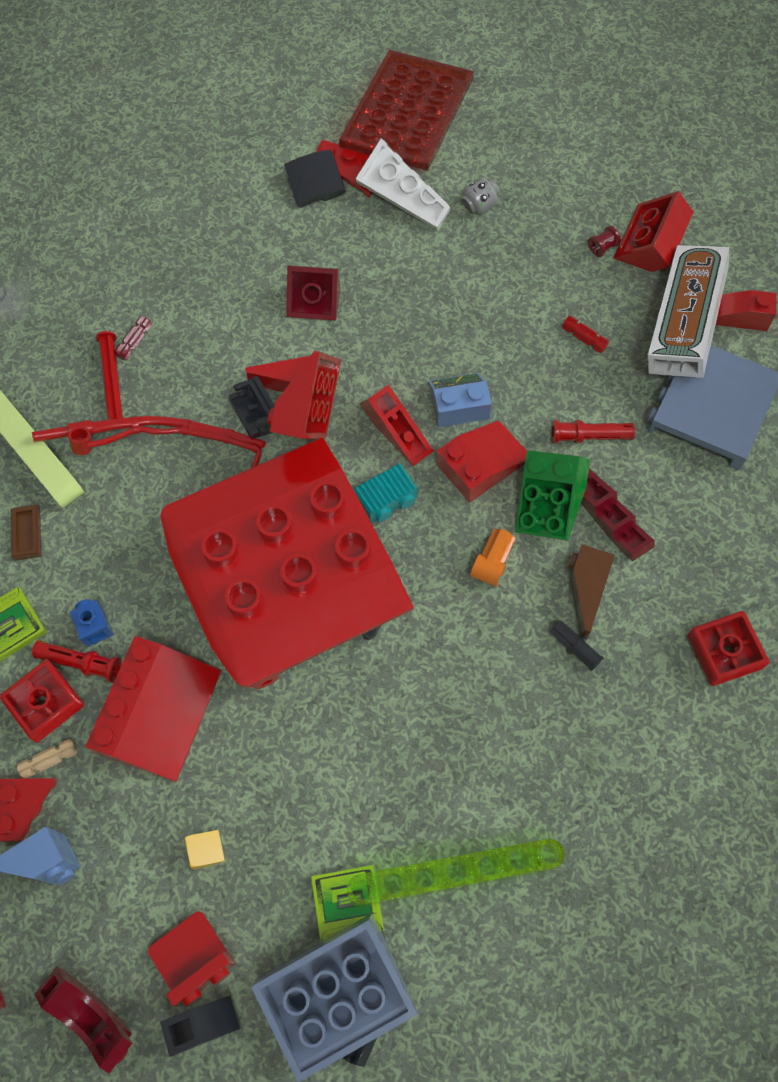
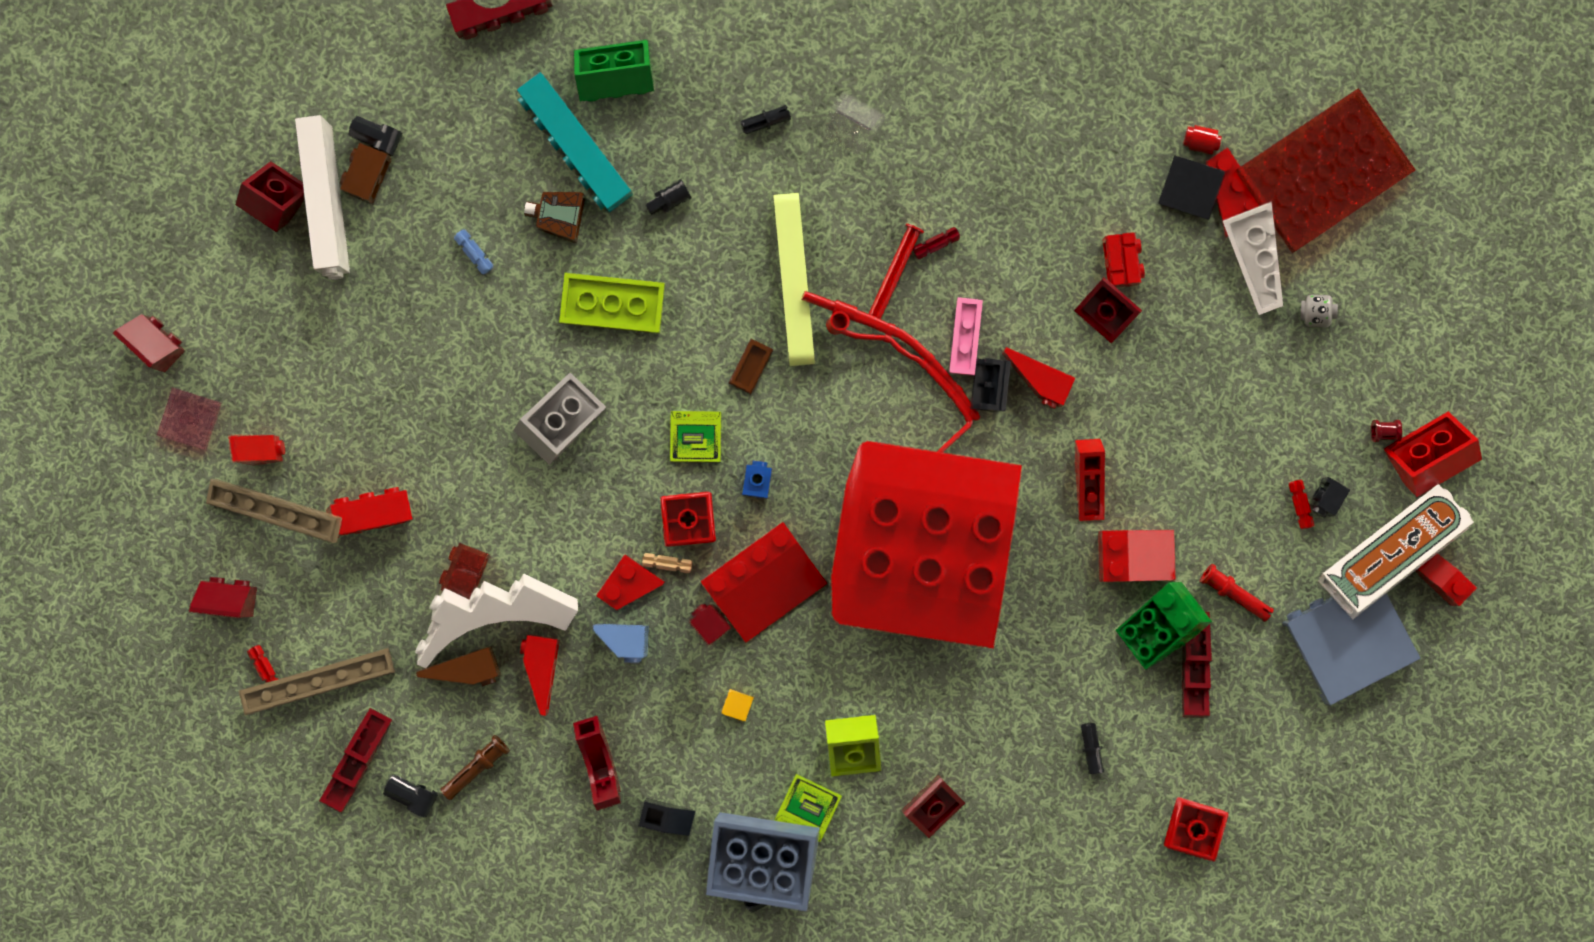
camera: 35 degrees right, 20 degrees up
(89, 663) = (737, 512): red pin -> none
(116, 777) = (709, 623): none -> dark red arch
(190, 959) = (684, 771): red bracket -> none
(207, 388) = (965, 336): none -> bright pink plate
(295, 250) = (1122, 259): none -> red brick
(298, 144) = (1202, 139): none -> red brick
(308, 400) = (1025, 431): red slope -> none
(349, 804) = (853, 745): none -> lime slope
(386, 493) = (1040, 532): teal brick -> none
(460, 399) = (1157, 489): medium blue slope -> none
(471, 807) = (933, 806): none -> dark red slope
(471, 873) = (901, 850): clear neon green beam -> none
(492, 561) = (1079, 643): orange piece -> none
(588, 583) = (1137, 710): reddish brown slope -> none
(602, 311) = (1329, 497): none -> black brick

